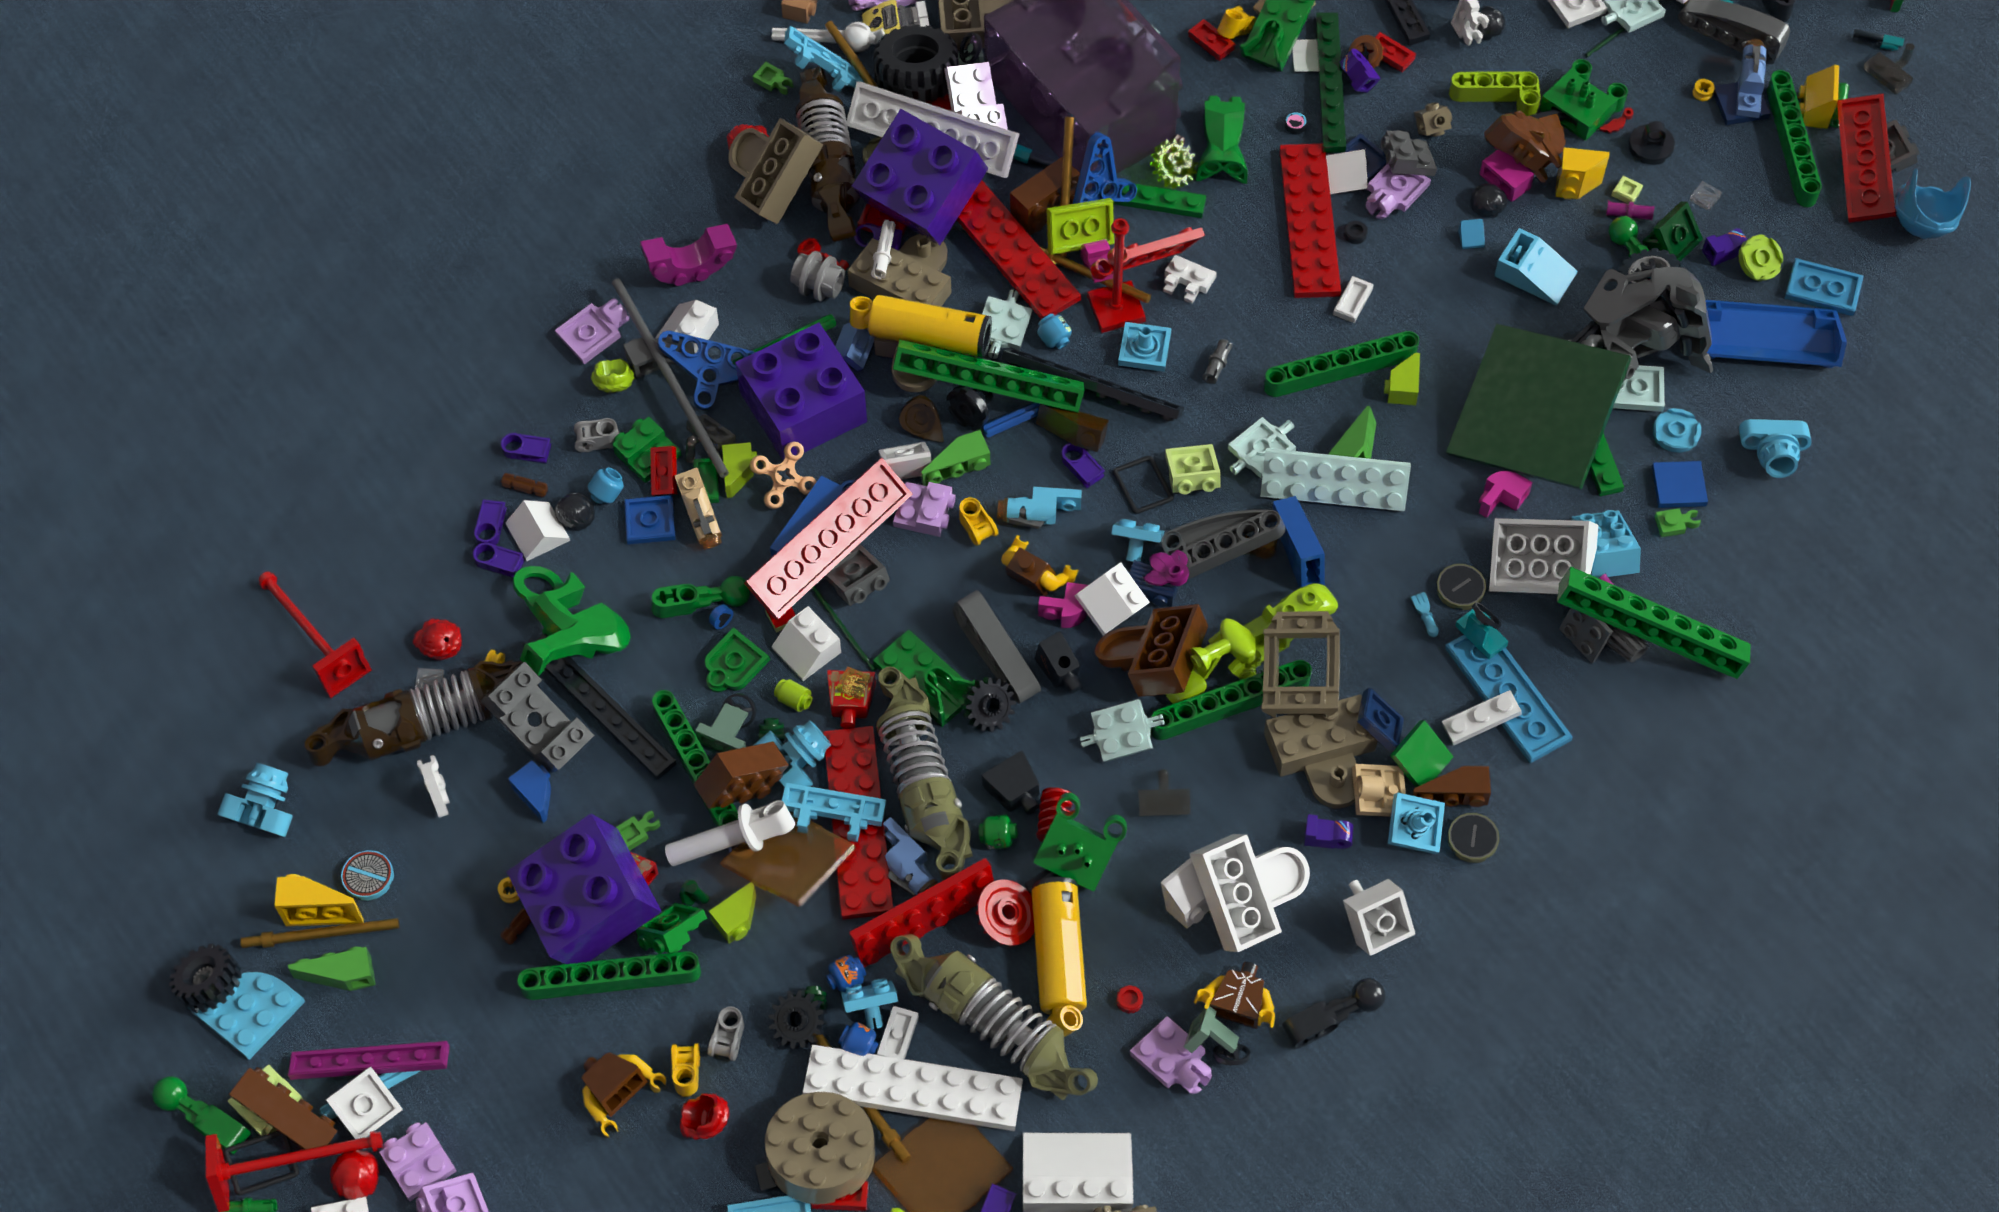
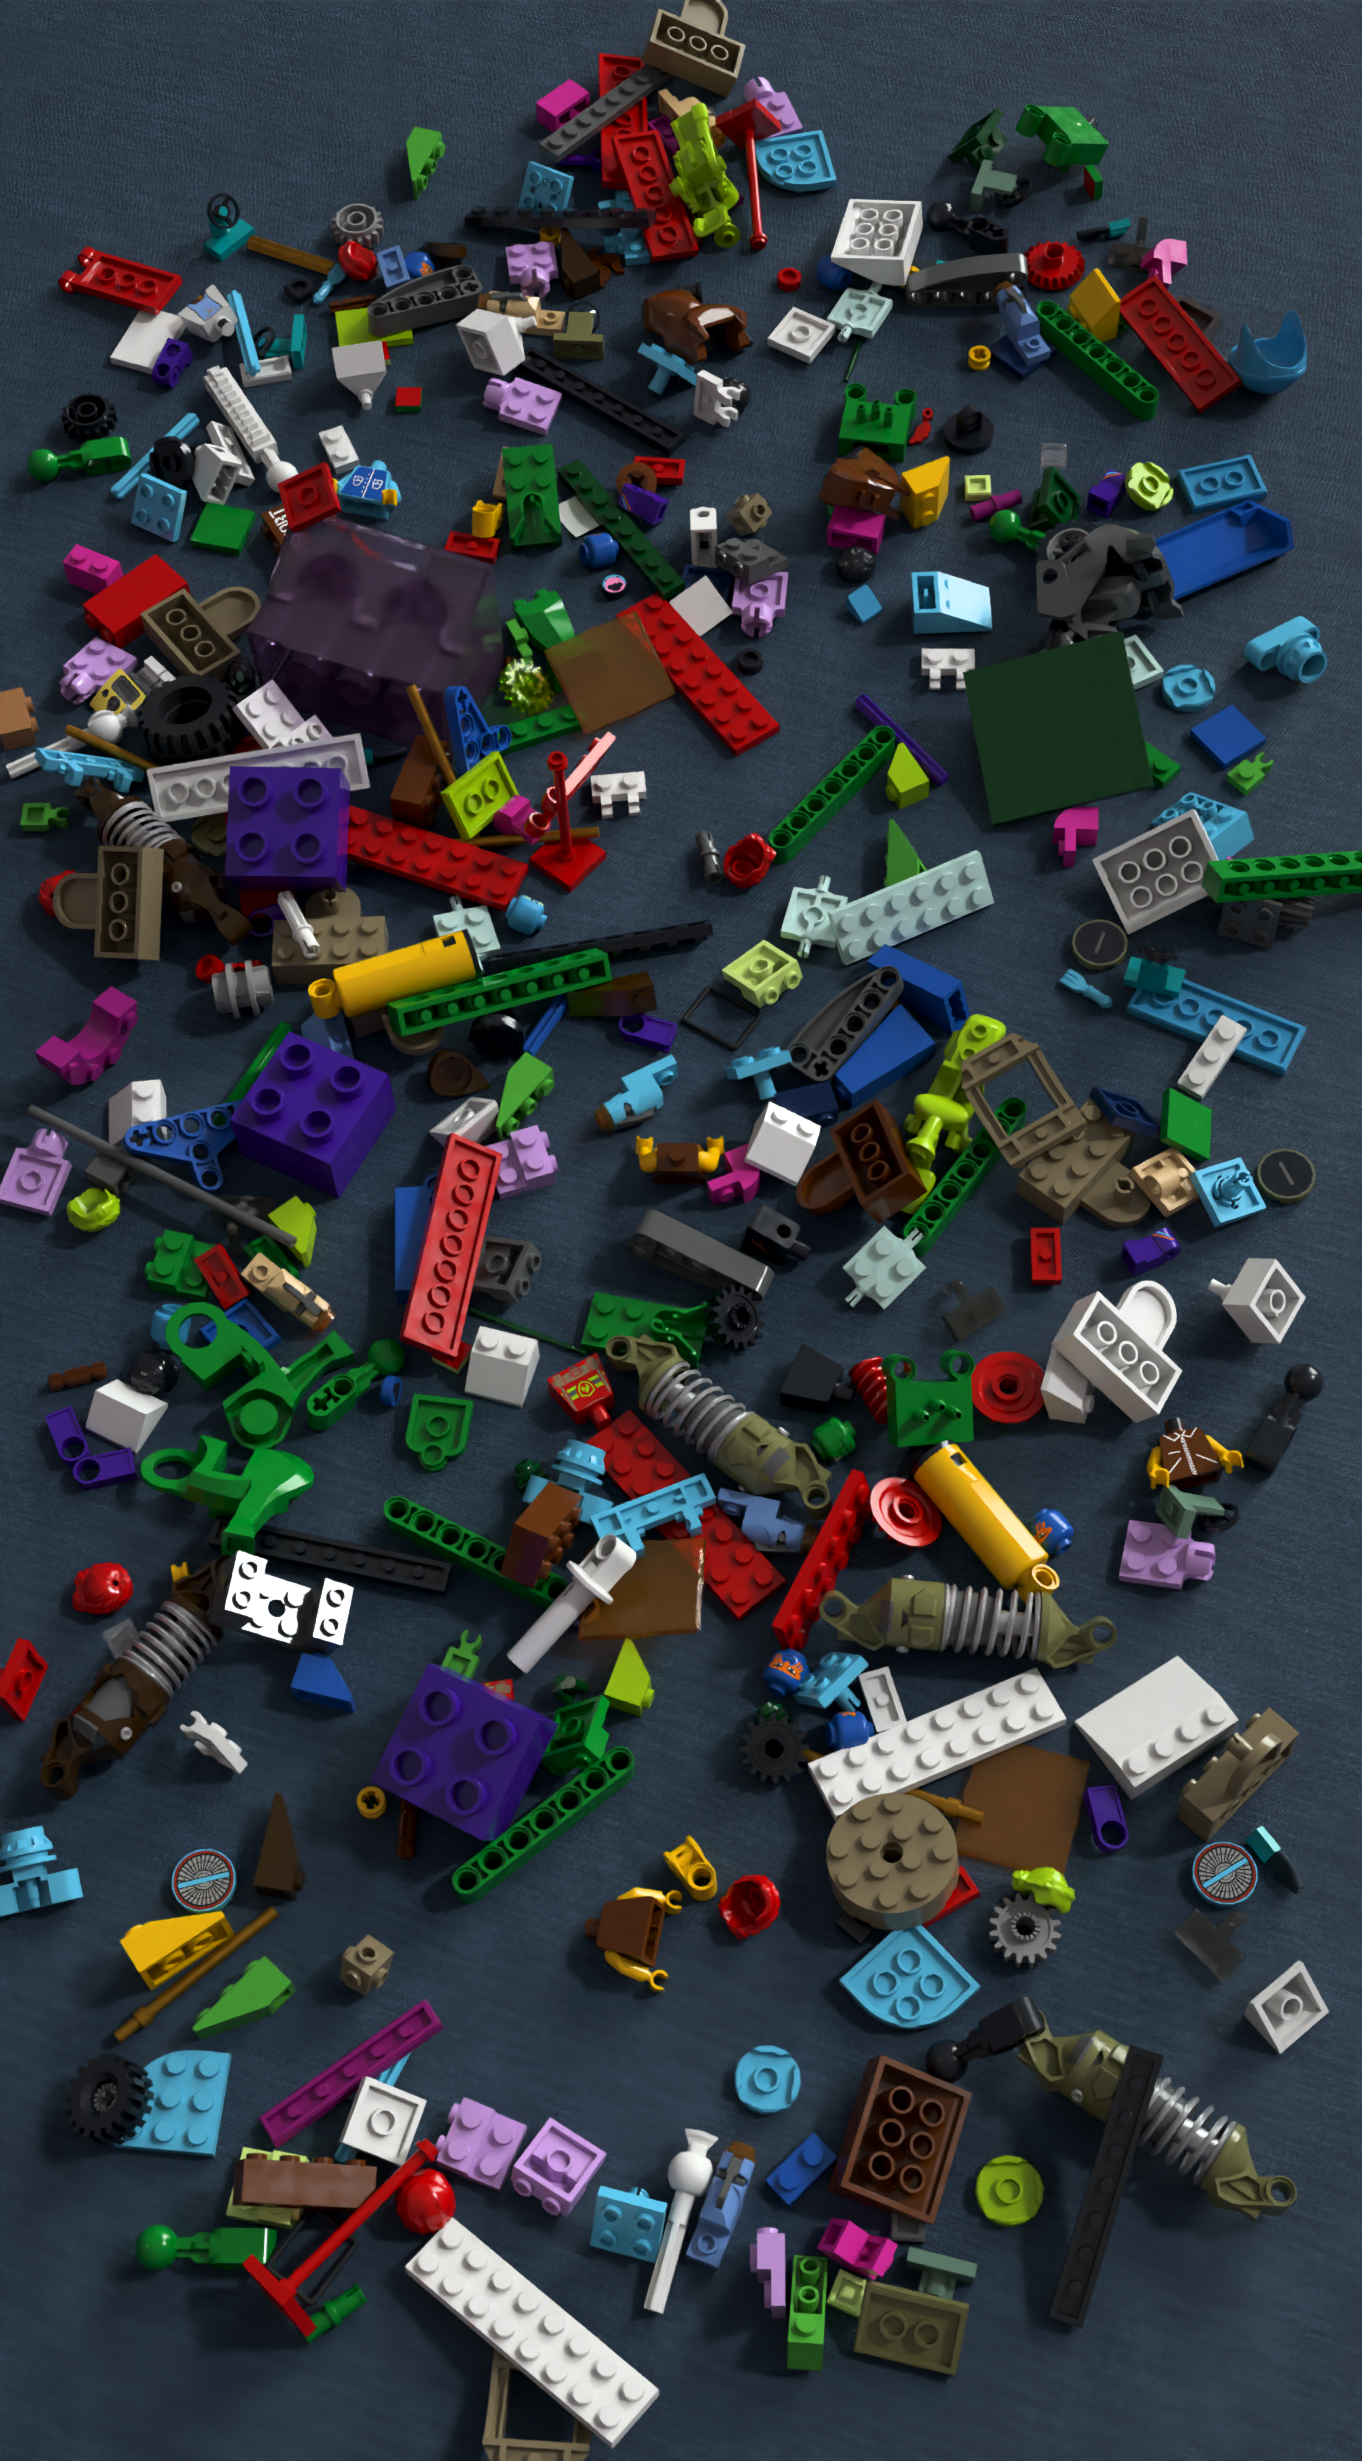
camera: 30 degrees left, 0 degrees up
(423, 890) = (279, 1865): none -> dark brown slope
(426, 995) = (366, 1965): none -> dark tan brick
(532, 448) = (59, 1334): dark purple piece -> none
(595, 434) = (119, 1281): light grey piece -> none
(631, 577) = (266, 1405): none -> green animal
(726, 726) = (483, 1500): sand green piece -> none
(726, 1039) = (712, 1813): light grey piece -> none
(789, 465) = (352, 1218): light nougat gear -> none
(793, 695) = (525, 1426): lime brick -> none
(853, 682) = (584, 1375): clear yellow tile -> none
(978, 525) = (589, 1149): yellow piece -> none
(1102, 989) = (1051, 1531): none -> blue head
(1129, 999) = (1083, 1525): red tile -> none
(1141, 855) = (1010, 1372): none -> red gear
(1144, 346) = (626, 881): medium azure plate -> none
(1168, 569) = (814, 1084): magenta plate -> none
(1196, 125) = (518, 639): none -> bright green plate
(1236, 579) = (884, 1058): none -> blue slope
(1241, 185) = (610, 672): none -> clear orange piece
(1241, 379) = (748, 861): none -> red hair
(1247, 791) = (1045, 1256): none -> red plate
(1301, 89) = (598, 550): none -> blue head
(1353, 299) = (795, 727): white tile -> none
(1389, 111) = (703, 529): none -> white torso
(1425, 350) = (880, 718): none -> dark purple axle
(1459, 787) = (1243, 1132): reddish brown slope -> none
(1497, 87) = (787, 451): lime beam -> none
(1502, 311) = (946, 663): none -> white plate
(1816, 46) = (1054, 265): none -> red gear
(1906, 84) = (1165, 260): none -> brick

